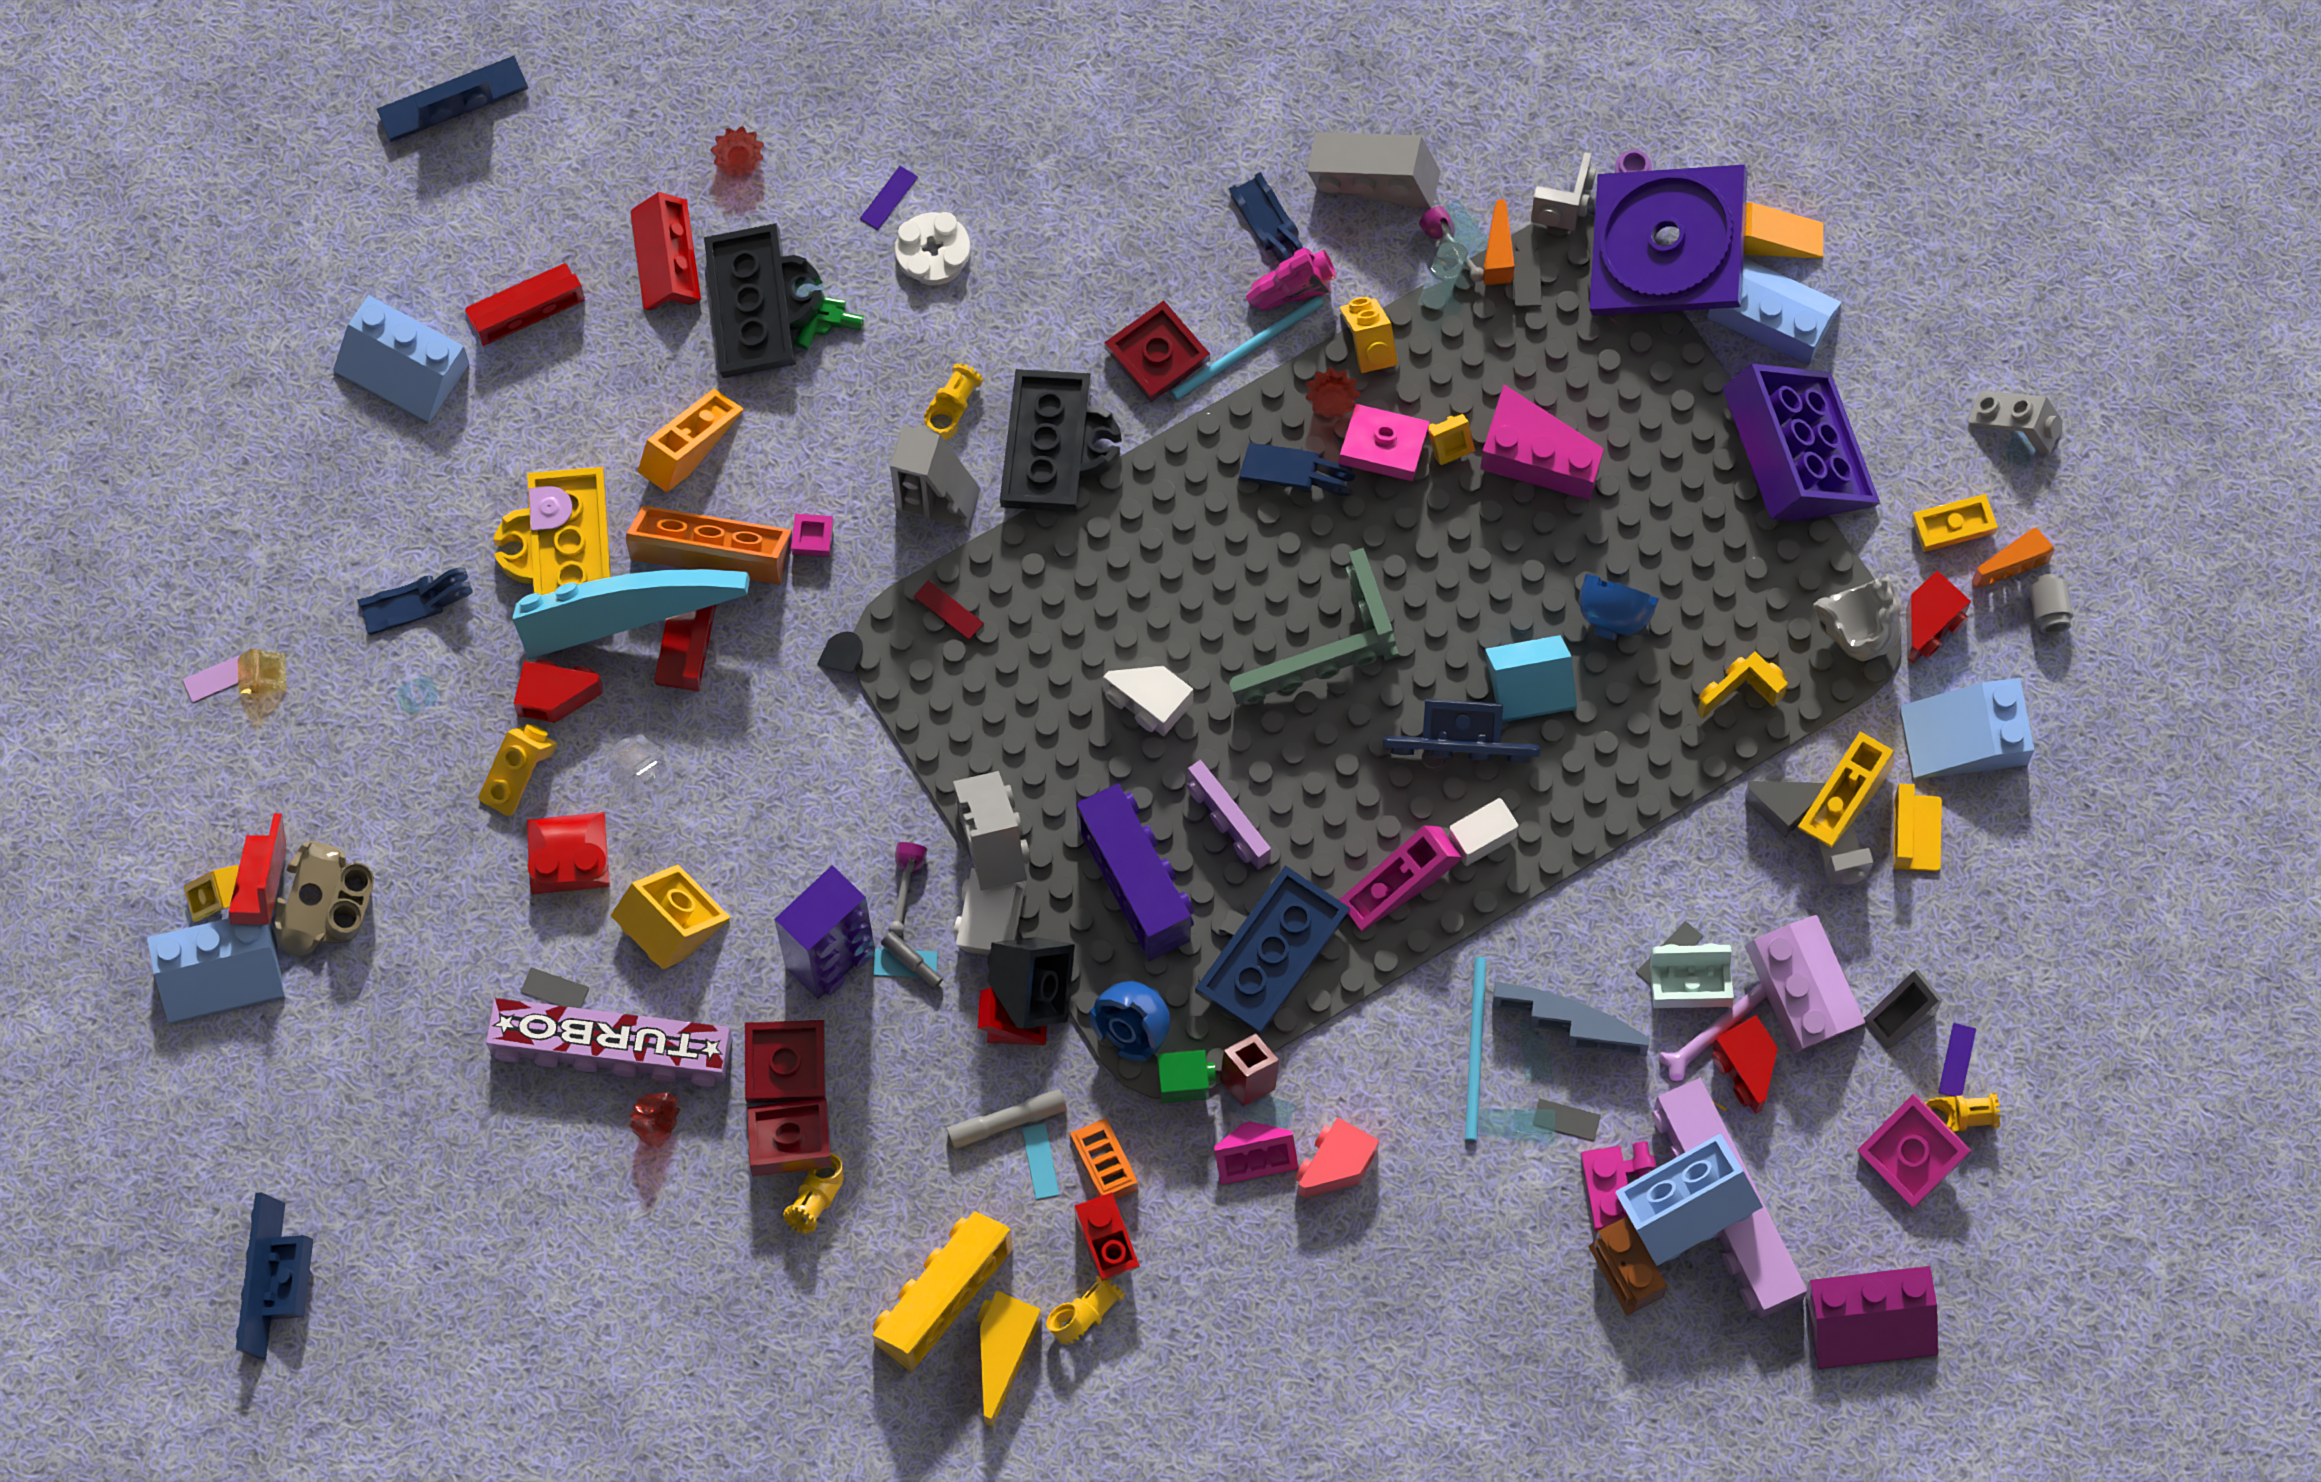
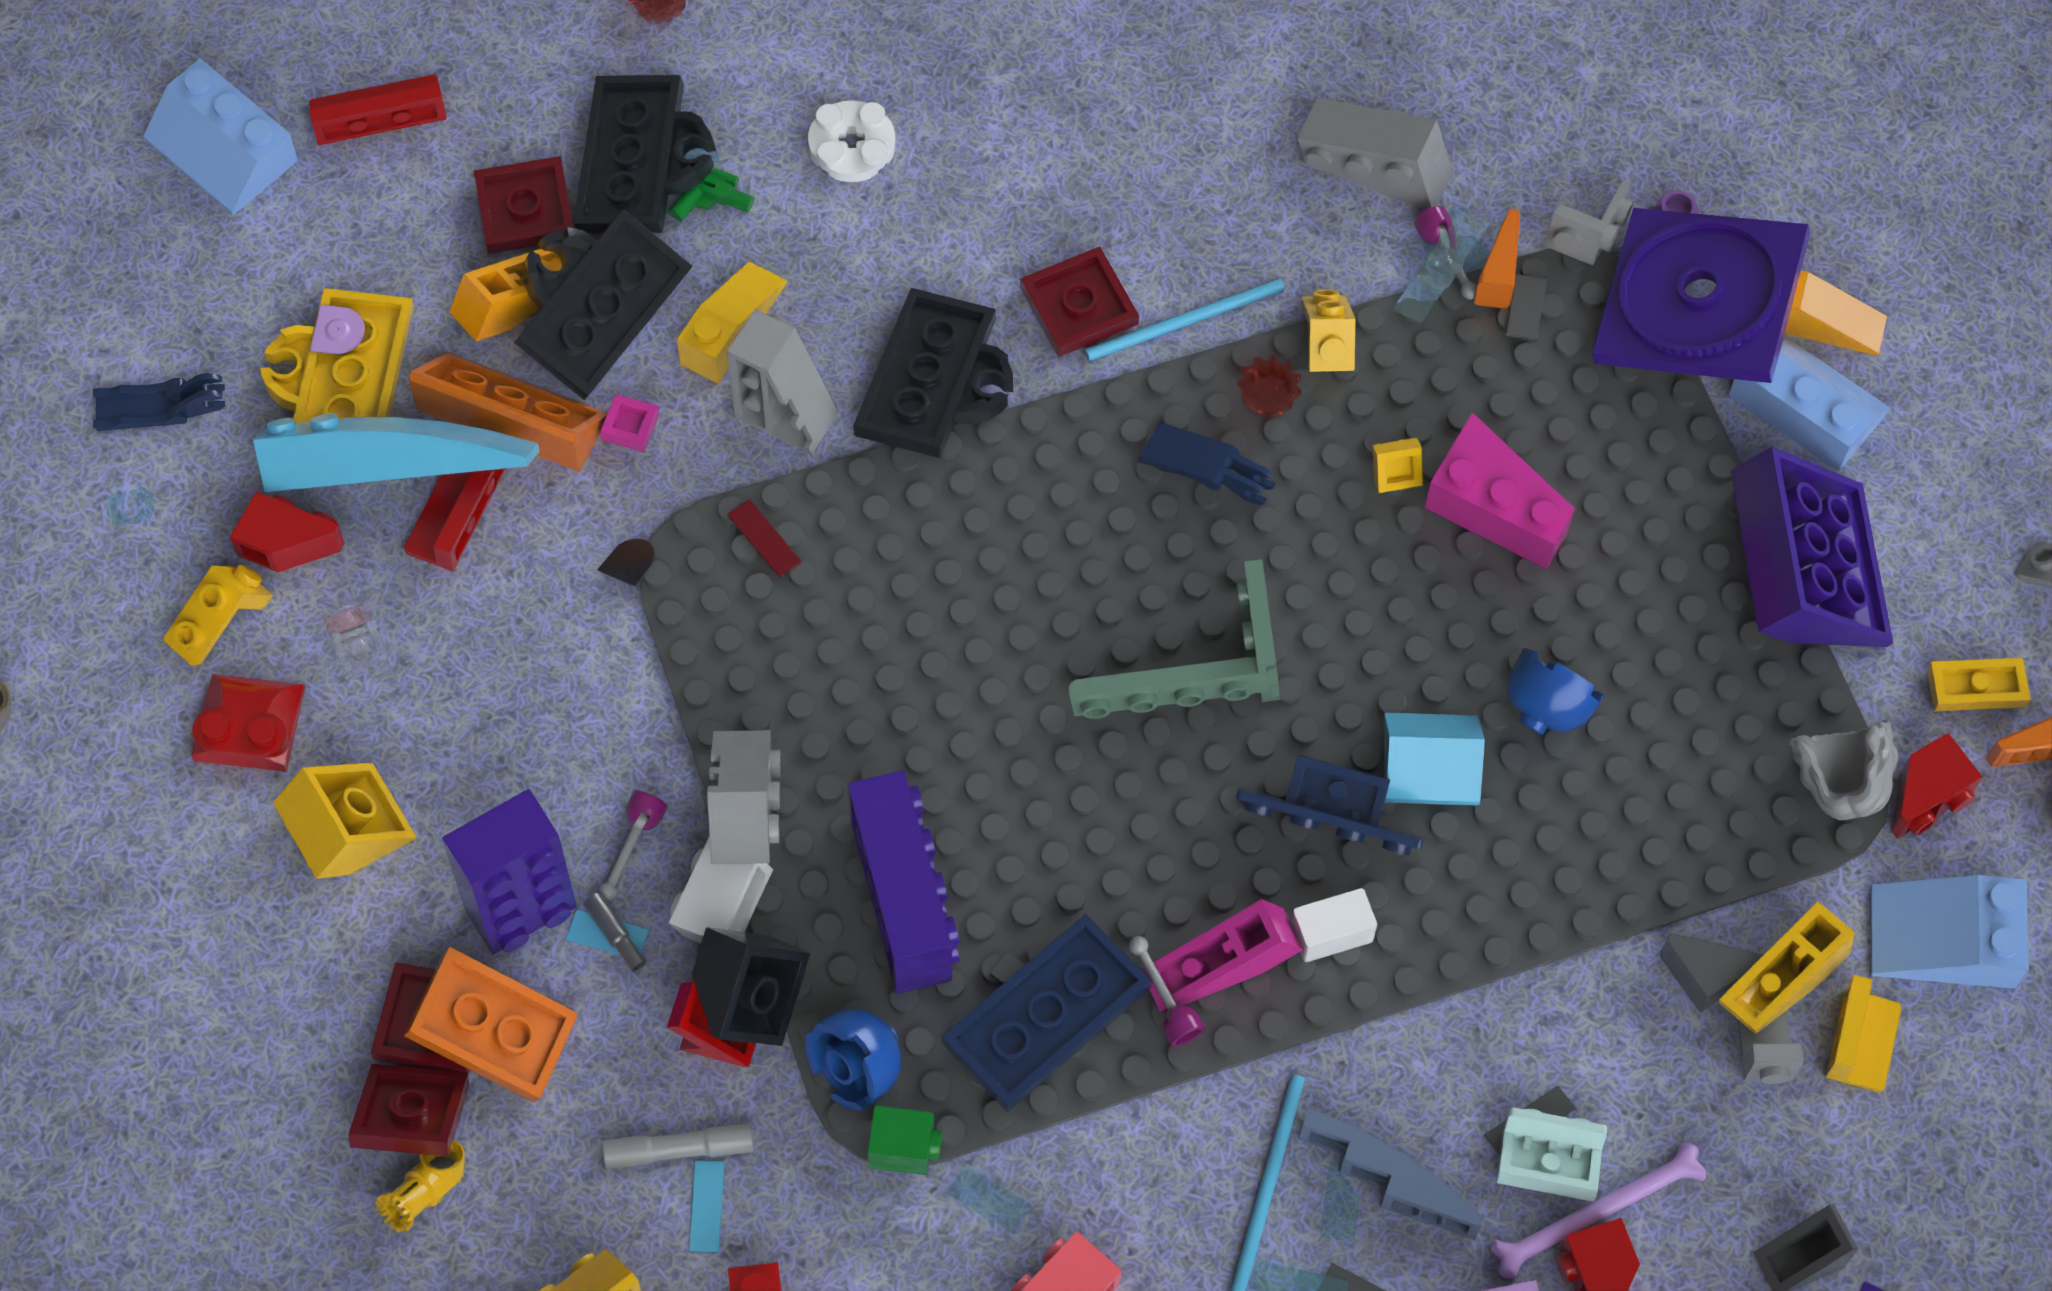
camera: 10 degrees right, 5 degrees down
(554, 989) = (188, 876): dark grey window -> none
(609, 1041) = (231, 950): brick -> none
(654, 1118) = (257, 1053): clear red piece -> none
(665, 251) = (550, 83): red panel -> none
(673, 364) = (522, 203): none -> dark red plate
(758, 434) = (596, 298): none -> black plate
(836, 1055) = (491, 1024): none -> orange plate
(871, 429) = (722, 316): none -> yellow slope
(888, 197) = (817, 77): dark purple window -> none
(953, 398) = (830, 307): yellow connector -> none
(1118, 1187) = (790, 1259): orange slope -> none
(1151, 694) = (975, 681): white slope -> none
(1228, 816) = (1031, 841): lavender plate -> none
(1249, 1069) = (984, 1149): dark red brick -> none
(1255, 1152) = (968, 1253): dark pink slope -> none
(1266, 216) = (1242, 185): dark blue arm -> none
(1293, 280) = (1255, 254): dark pink rock -> none
(1379, 935) = (1180, 1022): none -> hinge
(1384, 442) = (1317, 452): plate -> none
(1763, 677) = (1712, 814): yellow bracket -> none
(1804, 983) = (1689, 1192): lavender slope -> none

